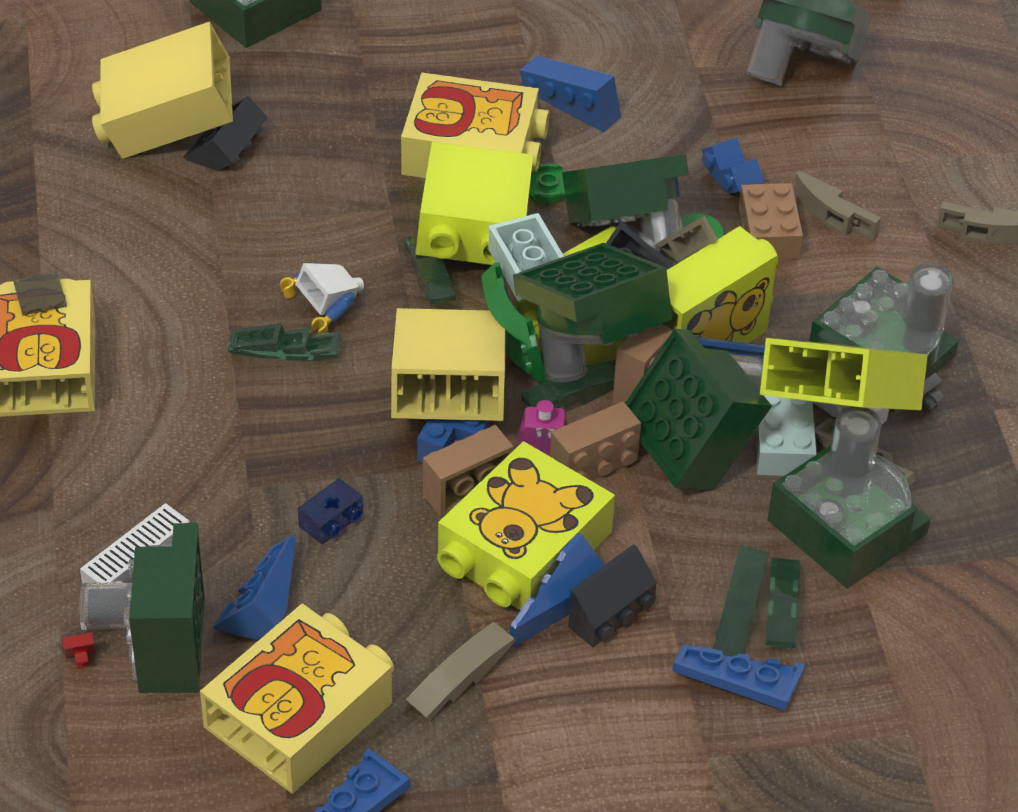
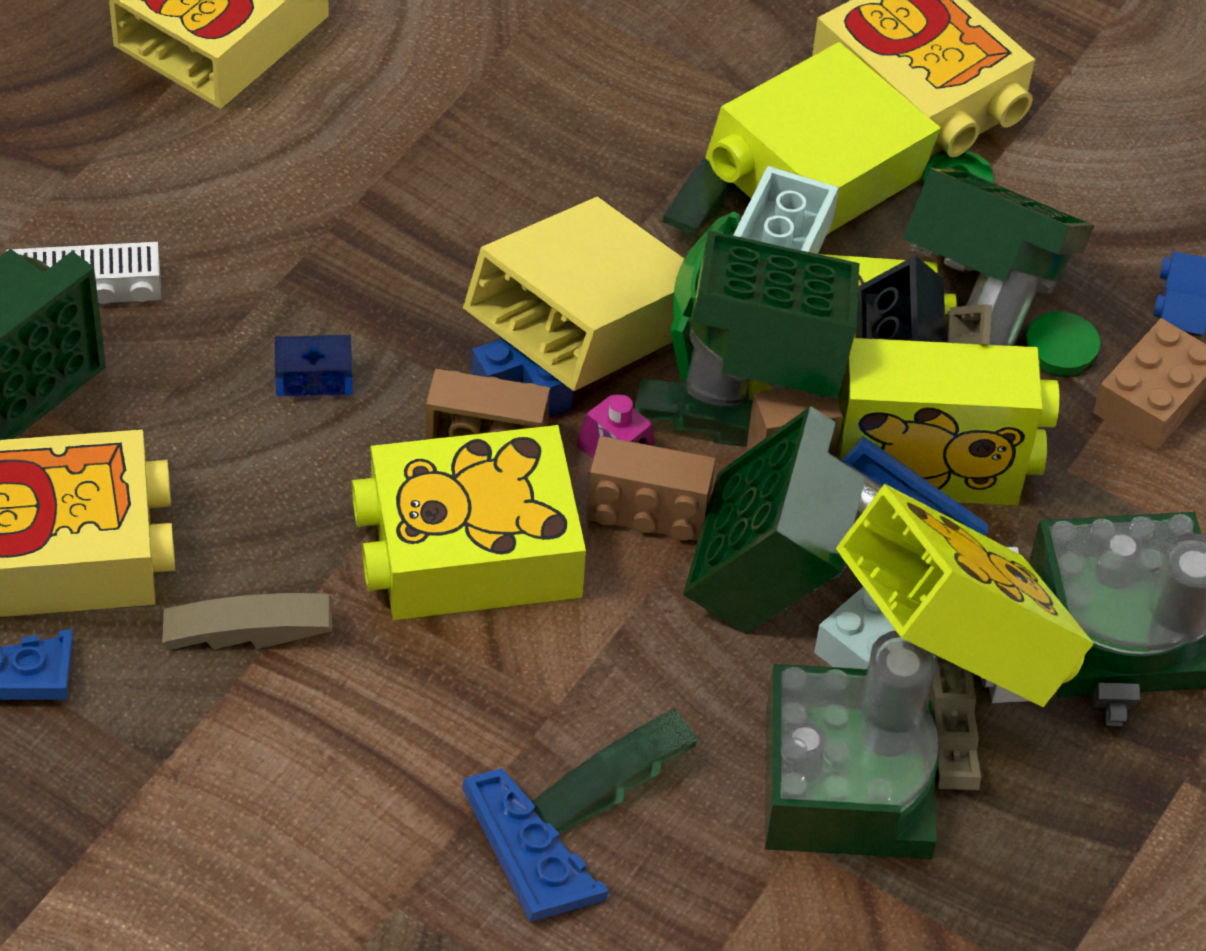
camera: 40 degrees right, 5 degrees up
(262, 597) = (153, 402): blue wedge -> none
(276, 343) = (467, 160): clear green slope -> none
(327, 289) = (573, 137): white torso -> none
(553, 597) = (451, 615): blue wedge -> none
(575, 90) = (1099, 94): blue wedge -> none
(611, 597) = (479, 659): black slope -> none
(783, 602) = (661, 805): clear green slope -> none

